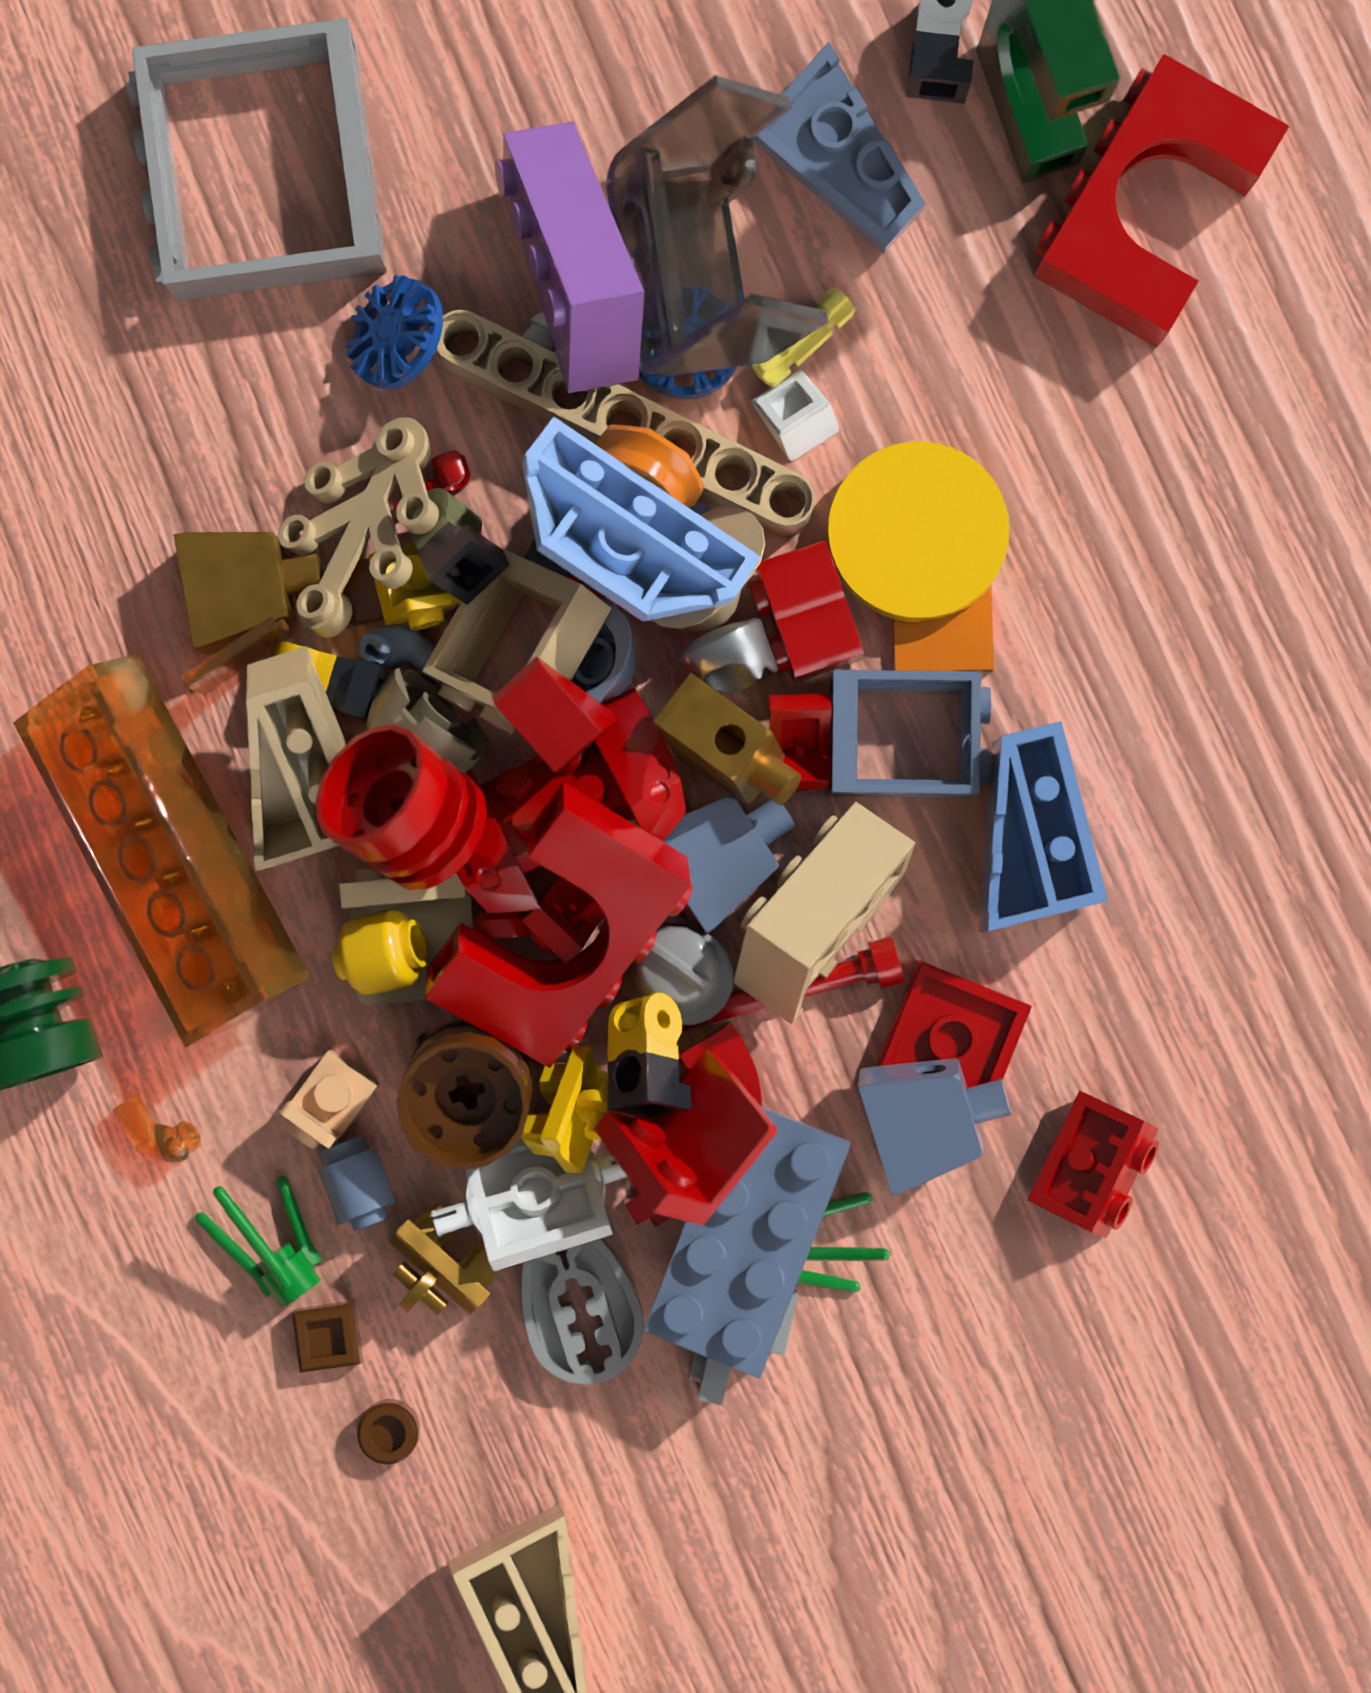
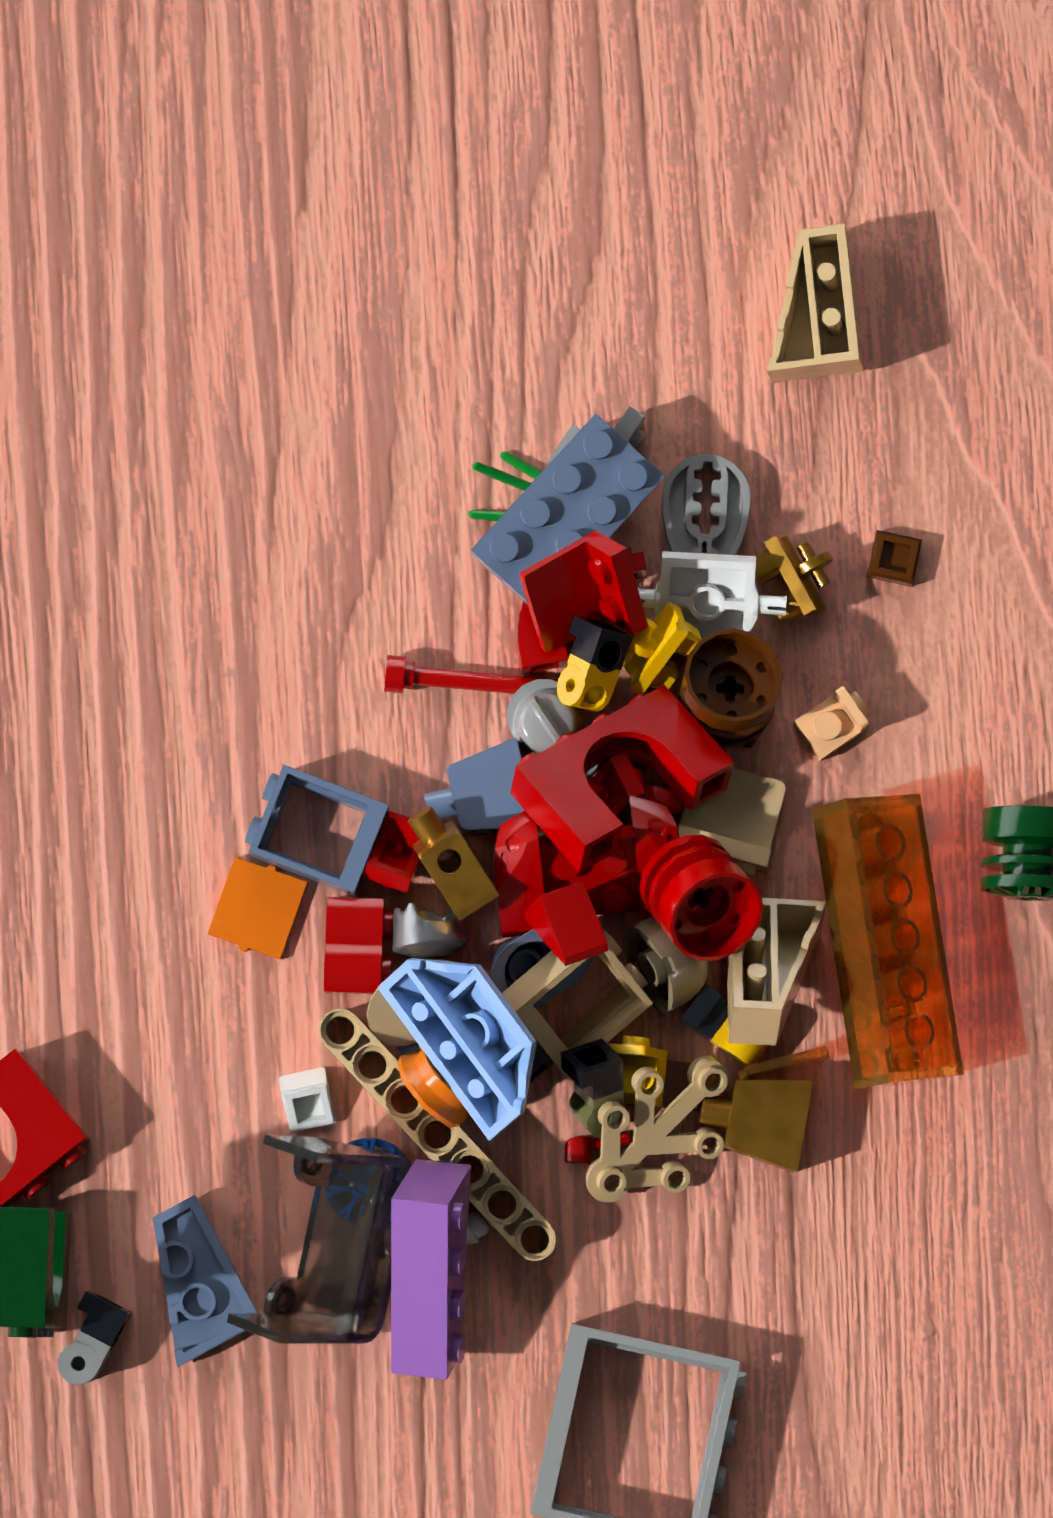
camera: 160 degrees left, 5 degrees down
(156, 1139) = (968, 741): clear orange arm -> none
(281, 1273) = (908, 615): green plant -> none
(356, 1183) = (834, 656): sand blue brick -> none
(380, 952) = (756, 810): yellow head -> none
(388, 1431) = (874, 476): reddish brown tile -> none
(395, 333) = (582, 1265): blue wheel -> none
(396, 647) = (665, 1034): sand blue arm -> none
(819, 908) = (428, 726): tan wedge -> none
(839, 311) = (269, 1158): light yellow axle -> none
(918, 531) = (251, 977): yellow tile -> none
(927, 1118) = (408, 551): sand blue torso -> none
(955, 1020) = (367, 603): red tile -> none
(1036, 833) = (253, 721): medium blue wedge -> none
(1095, 1165) = (301, 476): red bracket -> none

